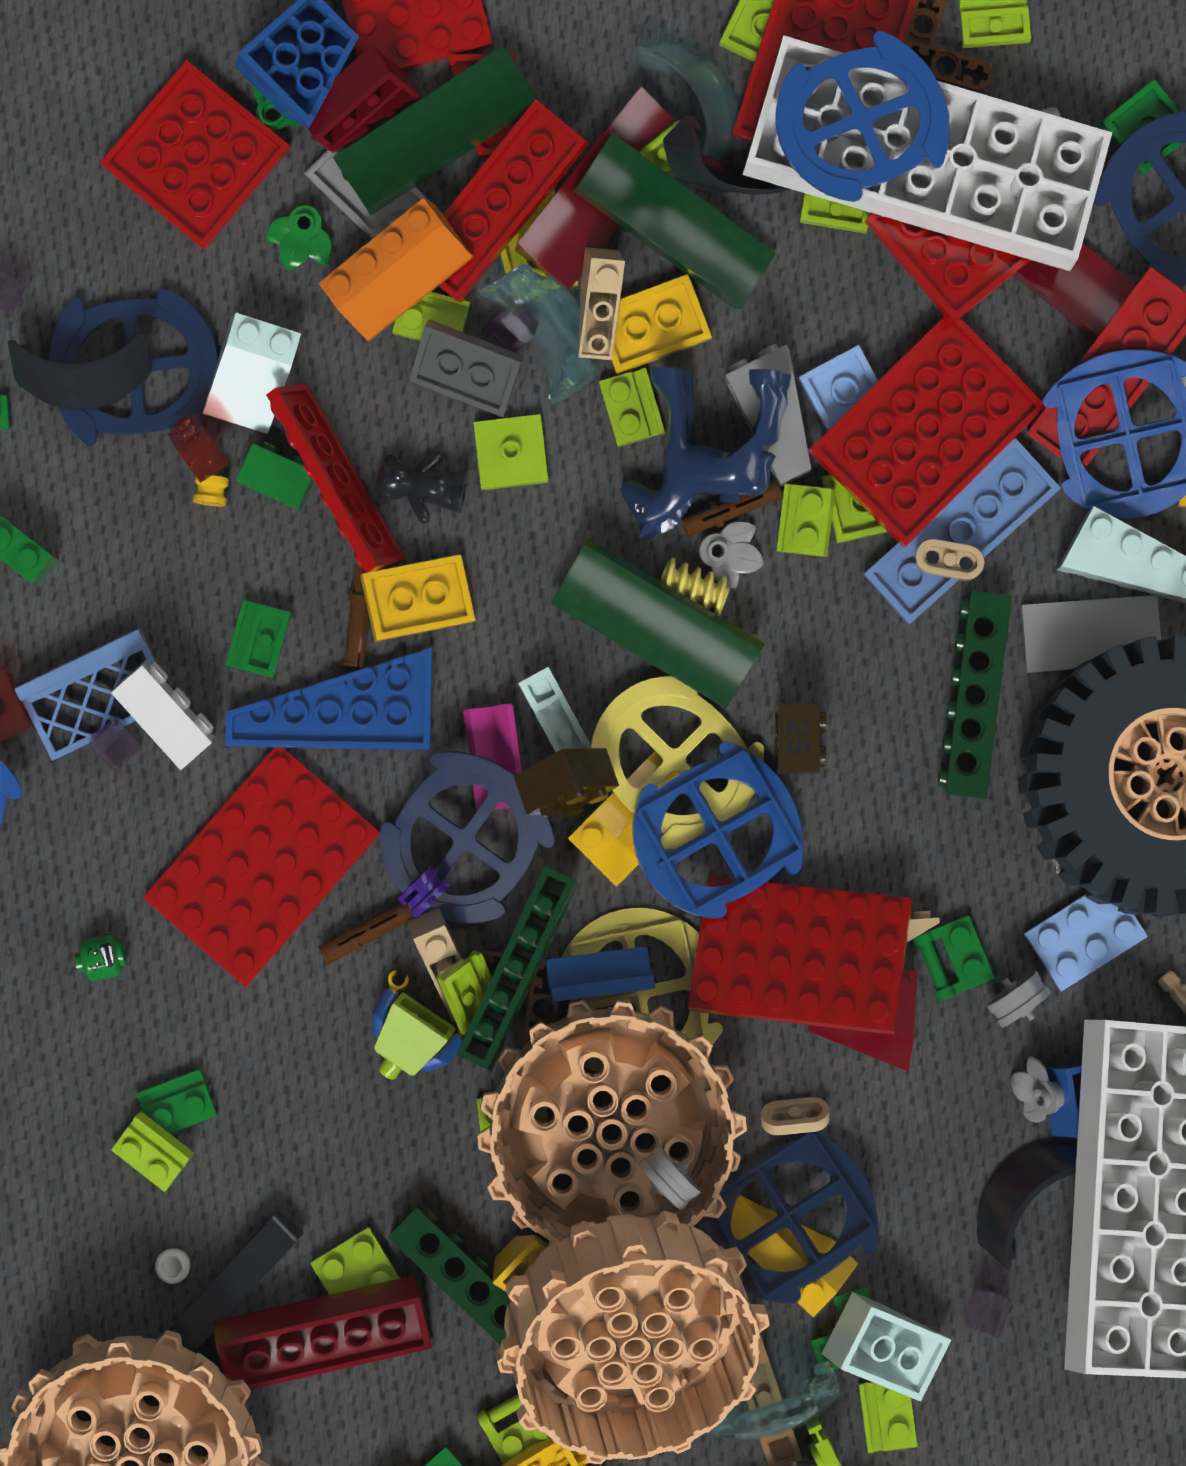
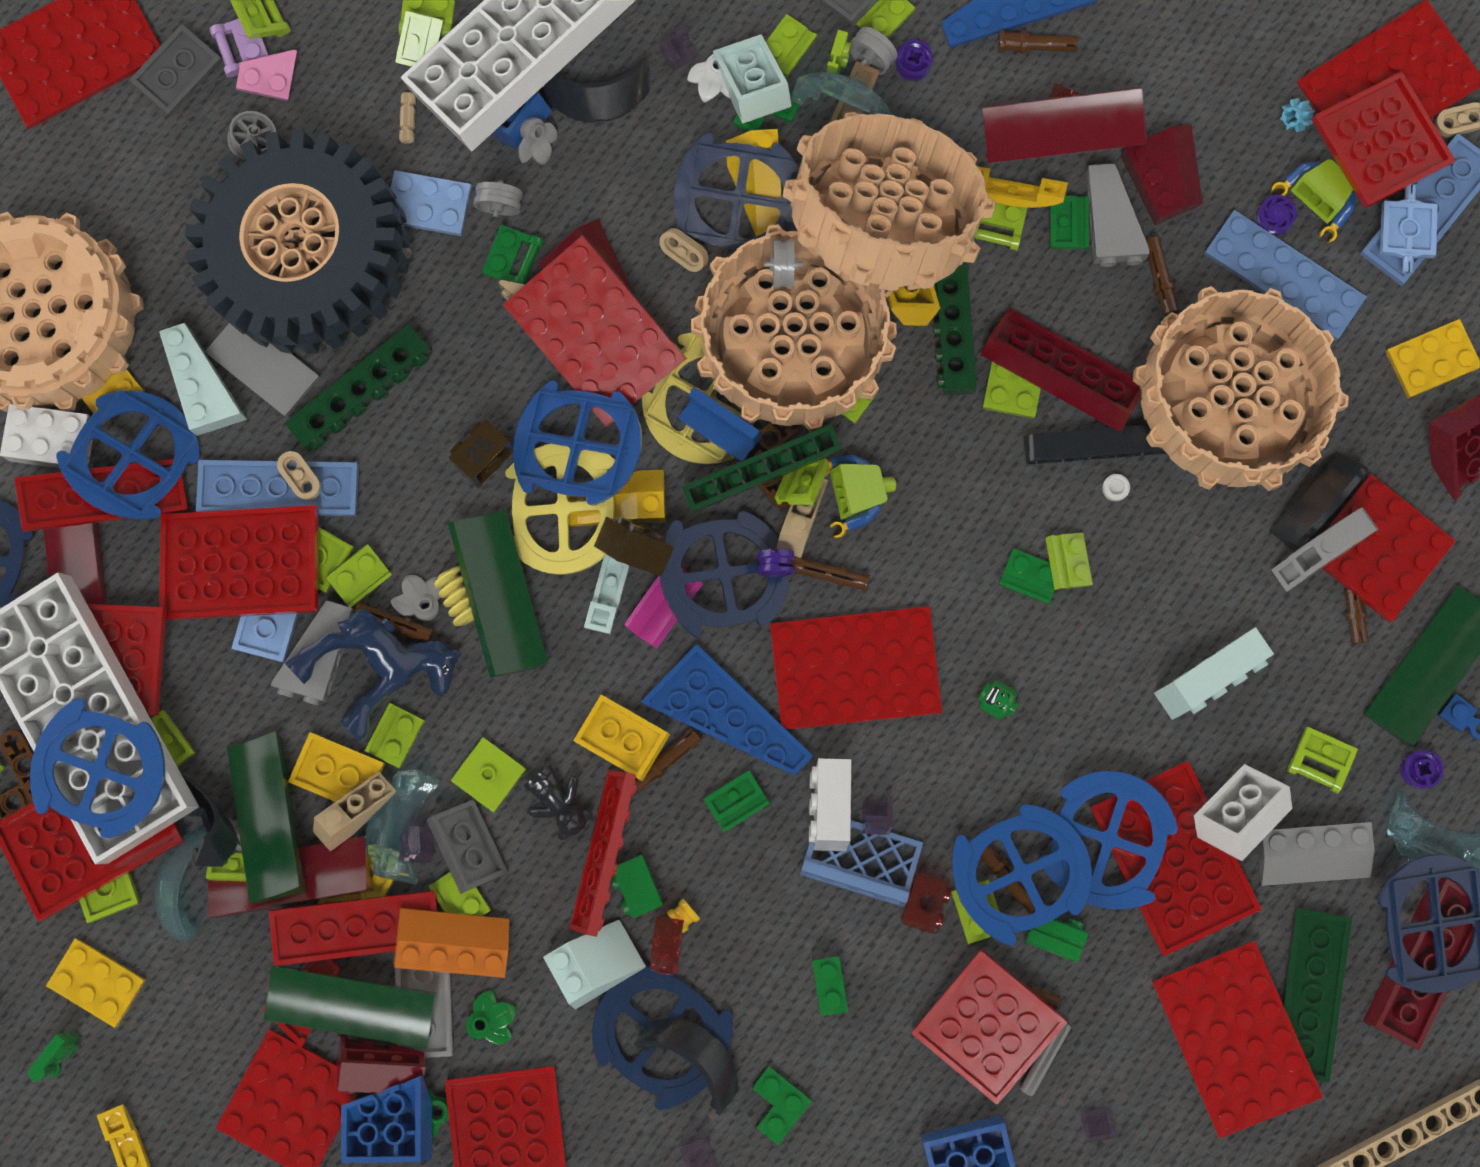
camera: 135 degrees left, 5 degrees down
(930, 1309) = (709, 79): none -> white plate

